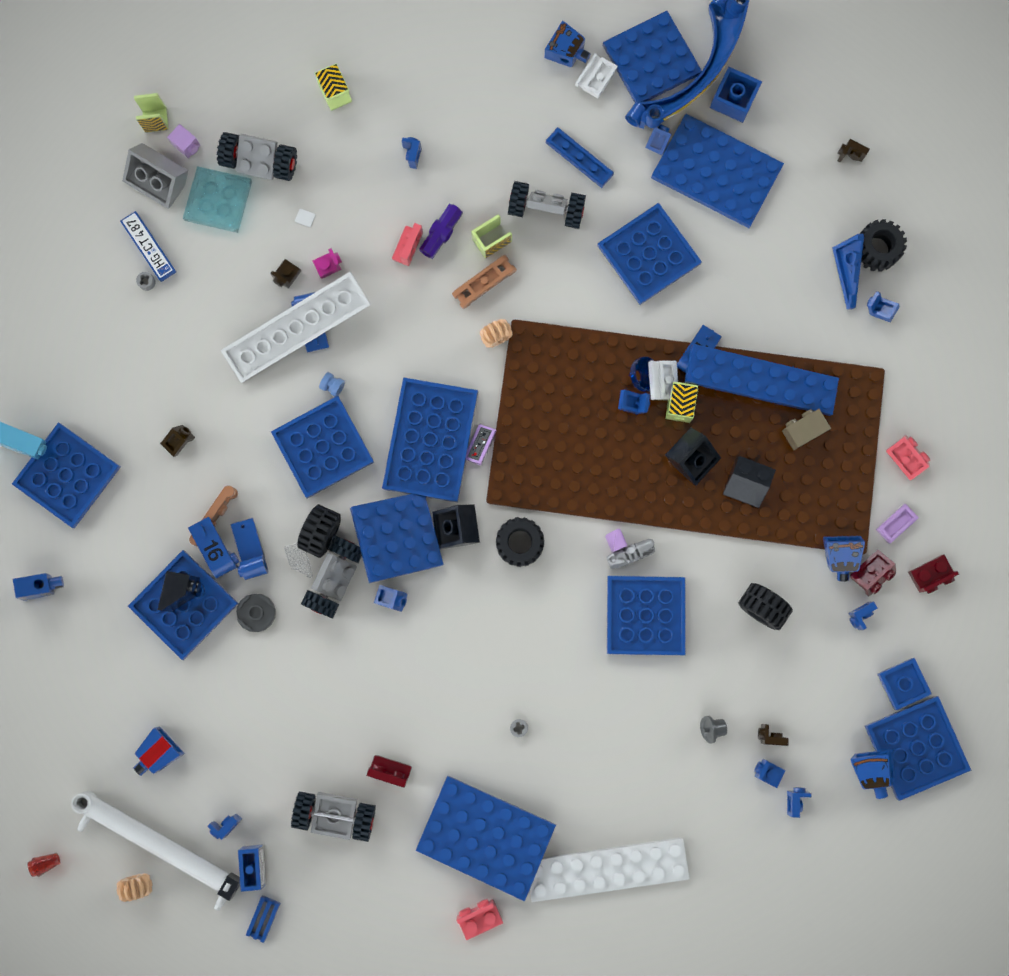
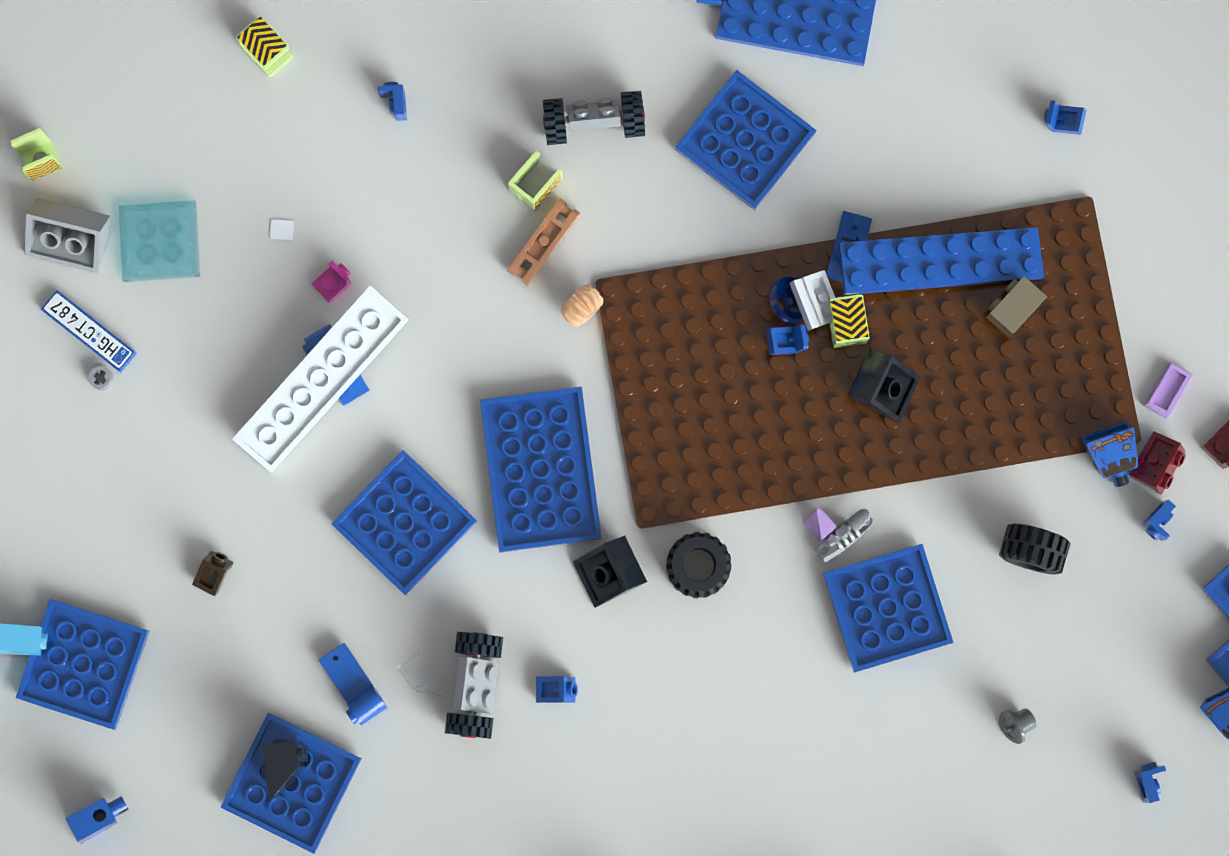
camera: 20 degrees left, 0 degrees up
(184, 141) = (91, 178): lavender brick -> none
(212, 548) = (307, 697): blue door -> none
(219, 506) = (289, 667): nougat plate -> none
(256, 156) = (195, 170): plate -> none
(256, 612) = (388, 763): dark grey tile -> none
(285, 274) = (282, 312): dark brown bracket -> none
(318, 530) = (437, 632): black tyre -> none
(332, 384) = (390, 437): medium blue wheel -> none
(396, 537) = (538, 608): blue plate -> none
(408, 244) = (429, 224): coral bracket -> none
(440, 231) = (466, 193): dark purple piece -> none
(480, 444) = (606, 455): slope -> none
(513, 725) = (764, 800): light grey bush -> none
(579, 157) = (615, 40): blue tile -> none
(748, 481) = (964, 396): black slope -> none
(769, 773) = (1104, 757): blue bracket -> none
(774, 739) = (1098, 712): dark brown bracket -> none
(848, 263) = (1003, 71): blue wing -> none
(891, 236) = (1039, 19): black tyre -> none
(908, 457) = (1157, 300): coral bracket -> none

